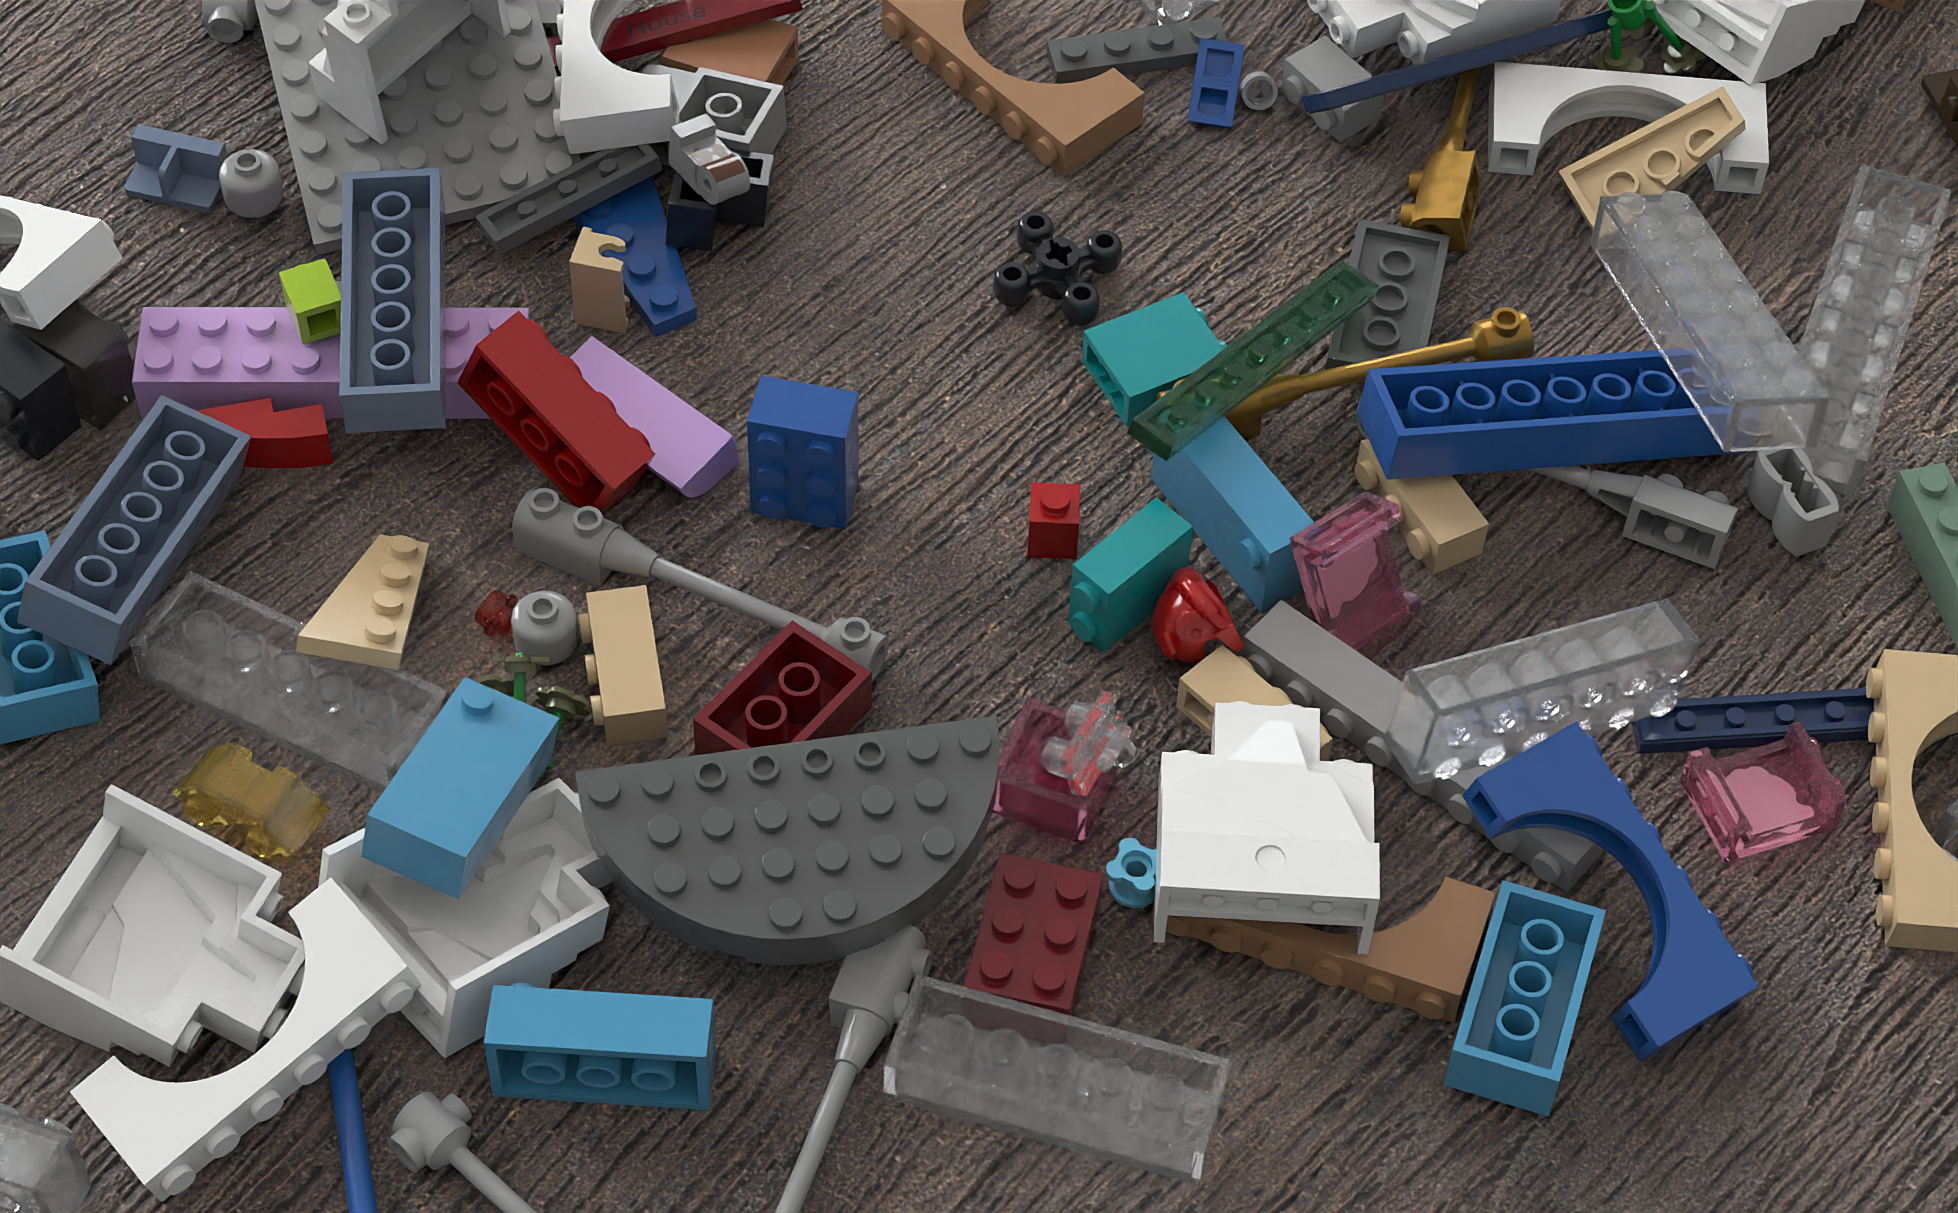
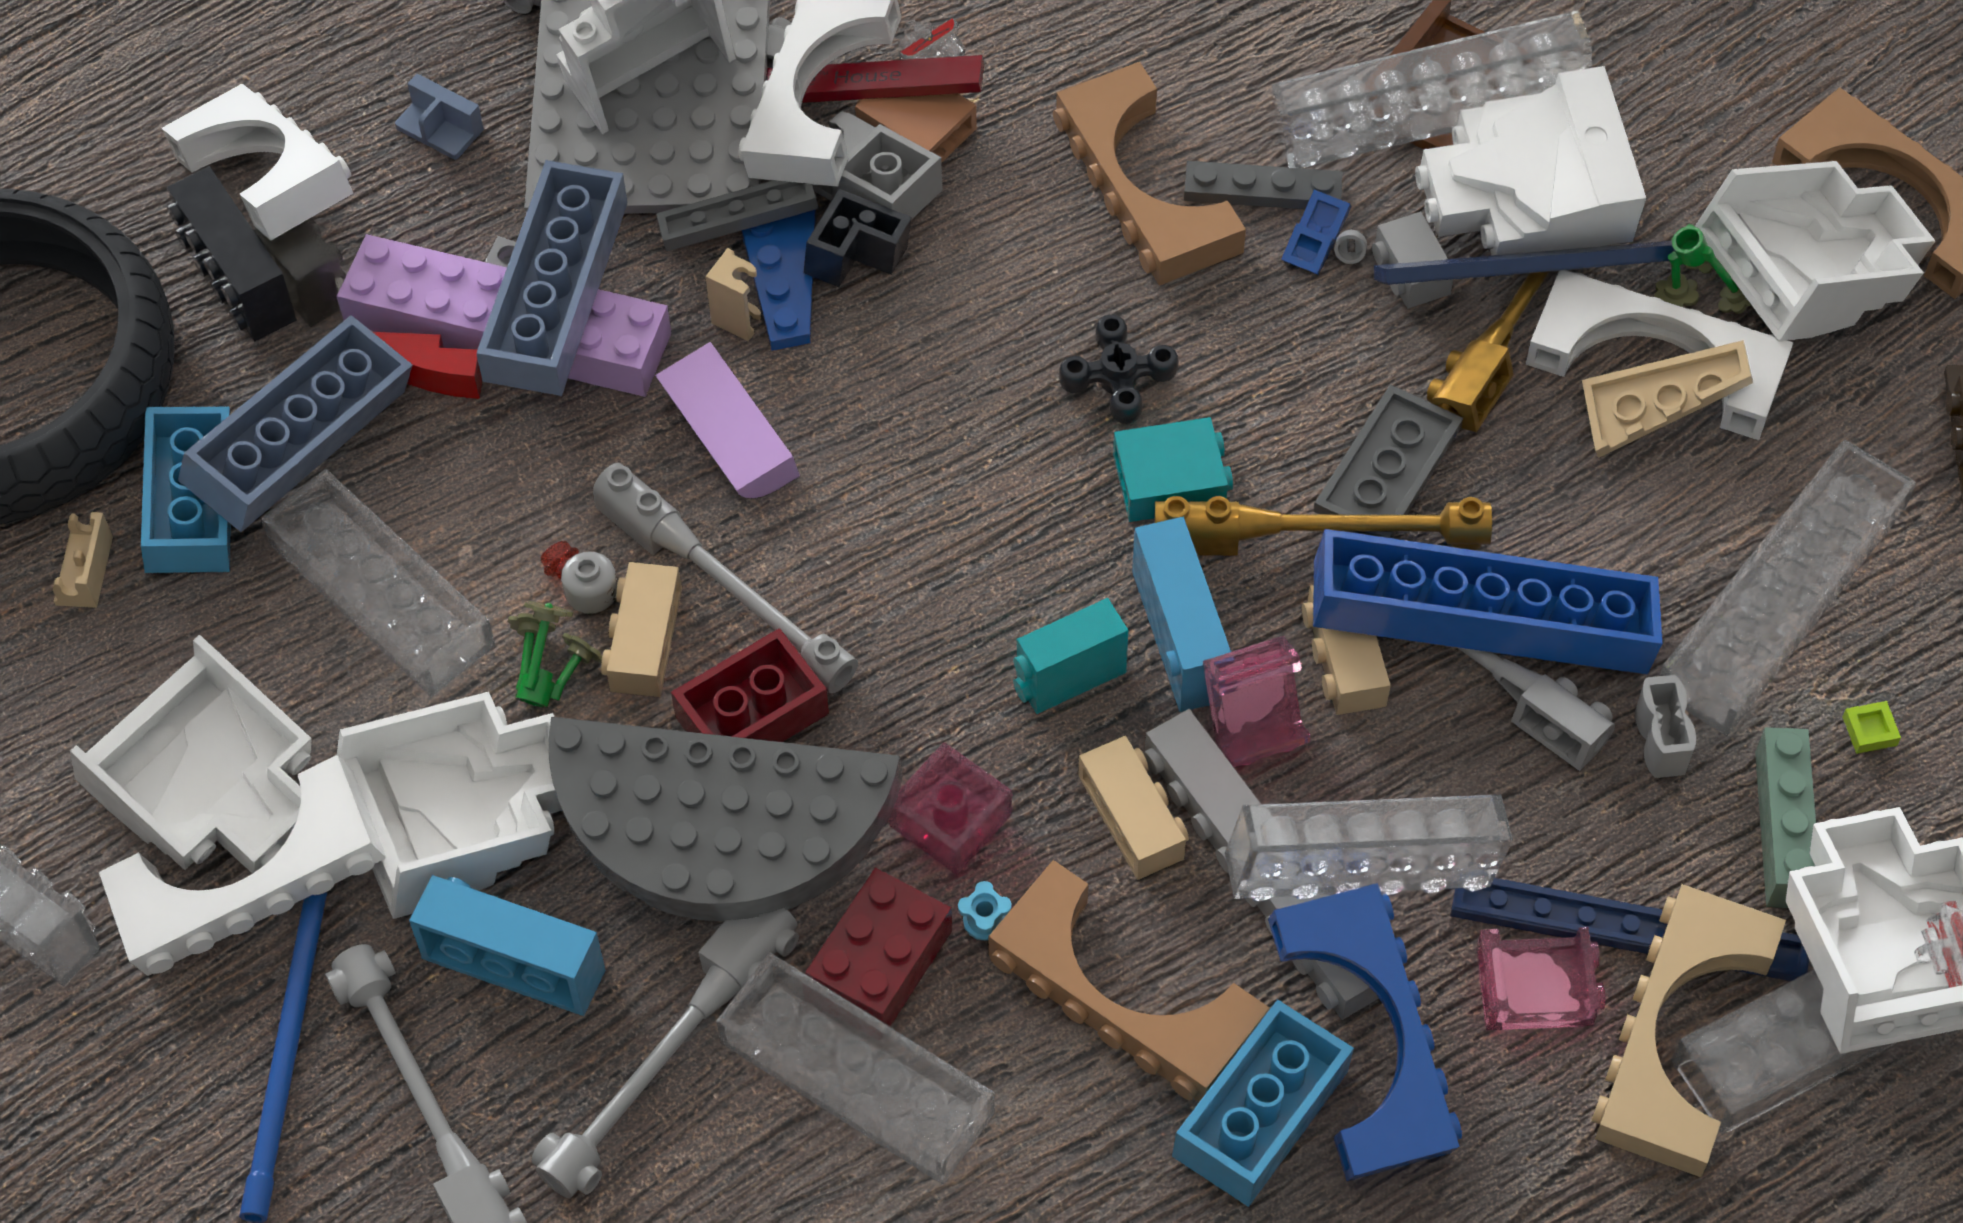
camera: 20 degrees right, 5 degrees up
(251, 183) = (490, 143): light grey head -> none
(268, 807) = (321, 675): clear yellow brick -> none
(312, 300) = (489, 260): lime brick -> none
(372, 606) = (458, 532): tan wing -> none
(460, 788) = (462, 705): dark azure brick -> none
(555, 415) = (651, 407): red brick -> none
(706, 161) = (847, 212): light grey leg -> none
(803, 452) = (839, 486): blue brick -> none
(1053, 520) = (1031, 591): red brick -> none
(1096, 744) = (979, 796): clear hips -> none
(1190, 616) = (1111, 703): red helmet -> none
(1252, 360) = (1235, 495): clear green plate -> none
(1266, 826) = (1091, 904): white panel -> none
(1709, 323) = (1641, 555): clear brick -> none

